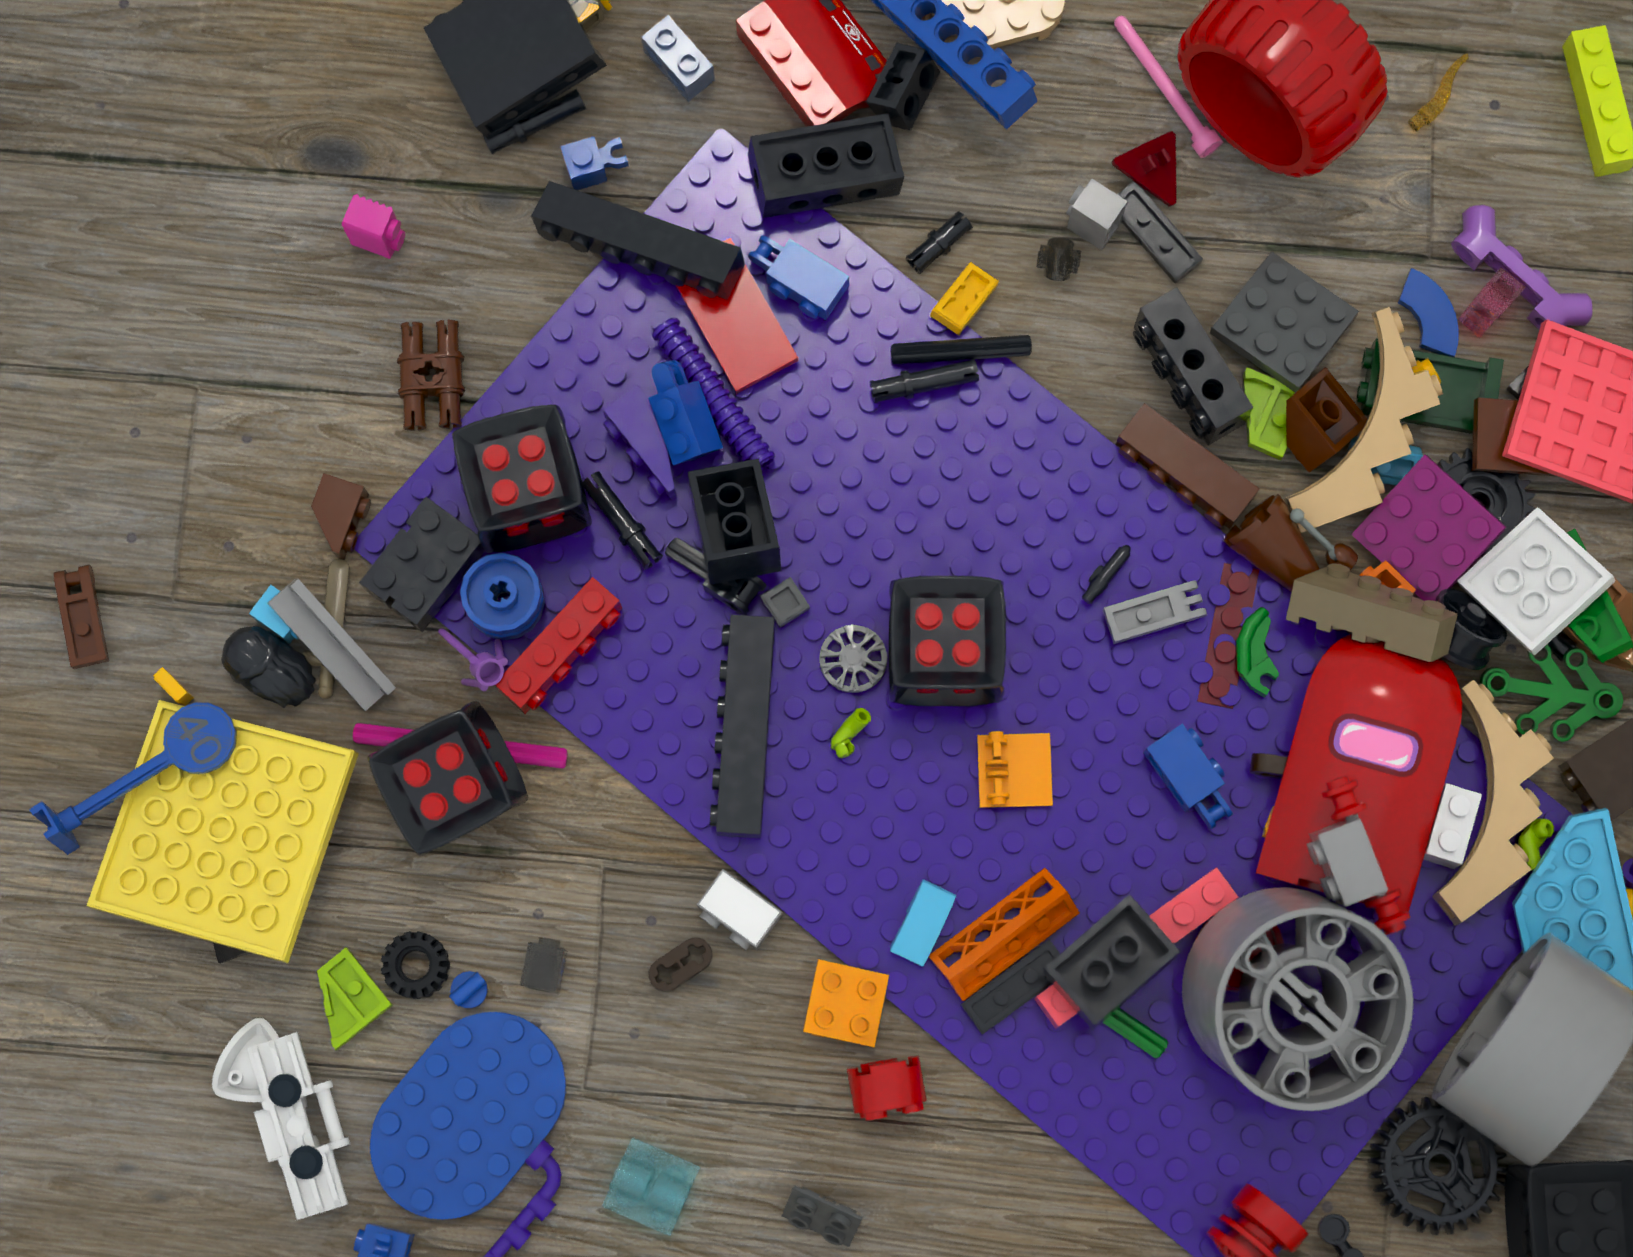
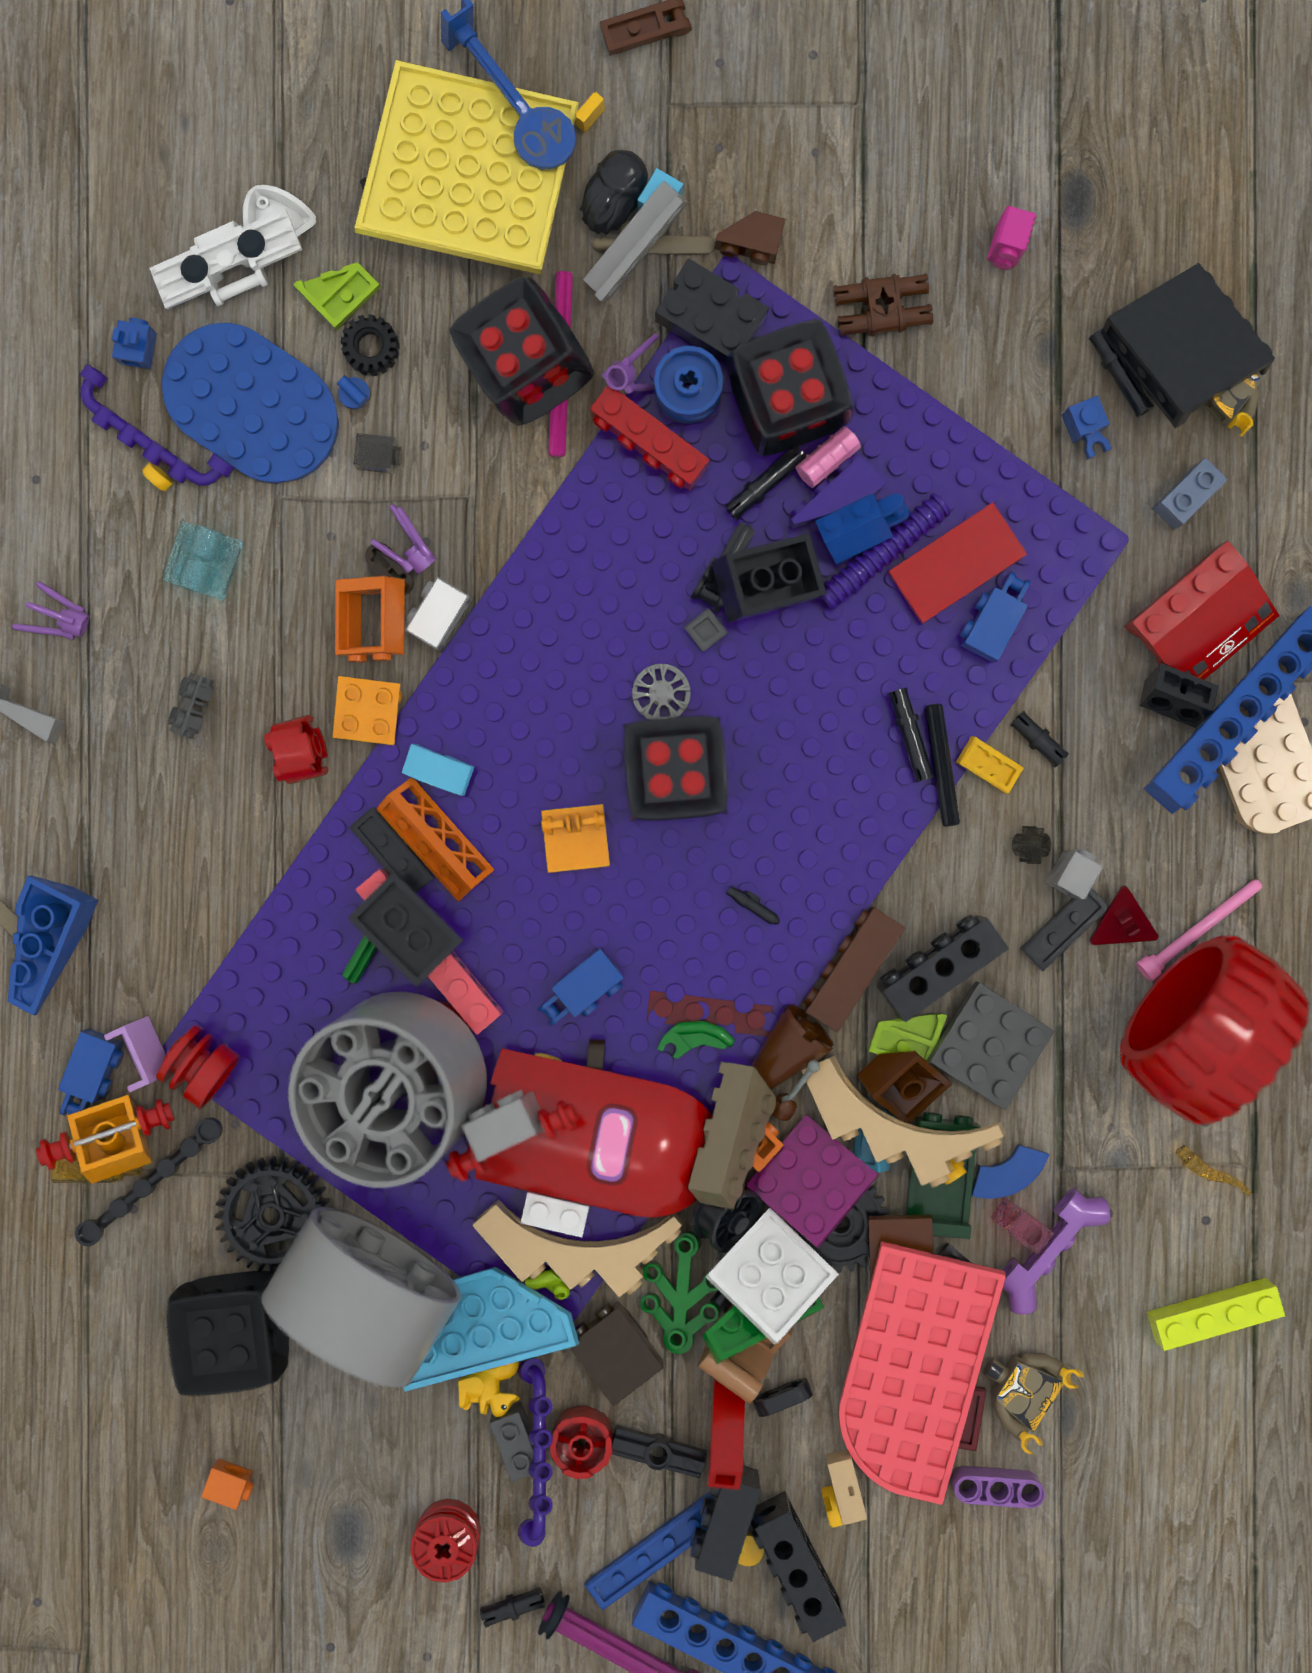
camera: 85 degrees right, 10 degrees up
(545, 1232) = (157, 476): none -> yellow tile
(600, 447) = (828, 457): none -> bright pink axle
(638, 240) = (1017, 472): black brick -> none
(668, 926) = (418, 555): none -> medium lavender plant
(737, 1015) = (348, 617): none -> orange window
(744, 726) = (593, 603): black brick -> none
(830, 144) = (1118, 637): black brick -> none
(849, 729) = (599, 694): lime arm -> none
(1153, 612) = (721, 947): light grey hinge -> none

